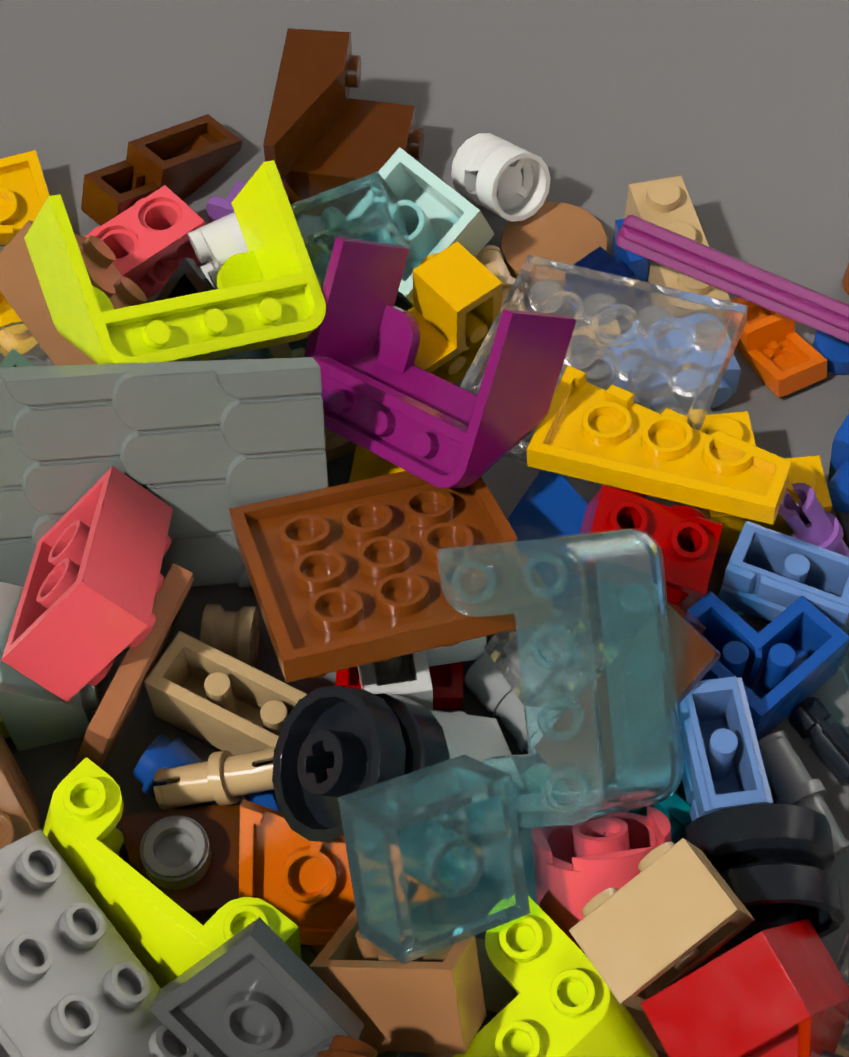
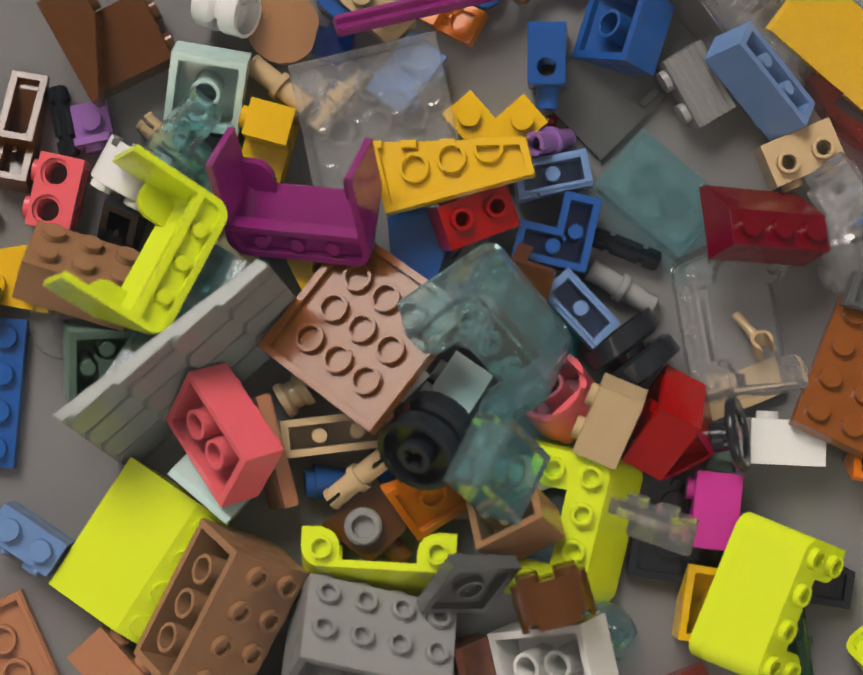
camera: 35 degrees left, 30 degrees up
(221, 182) = (62, 120): none -> black axle

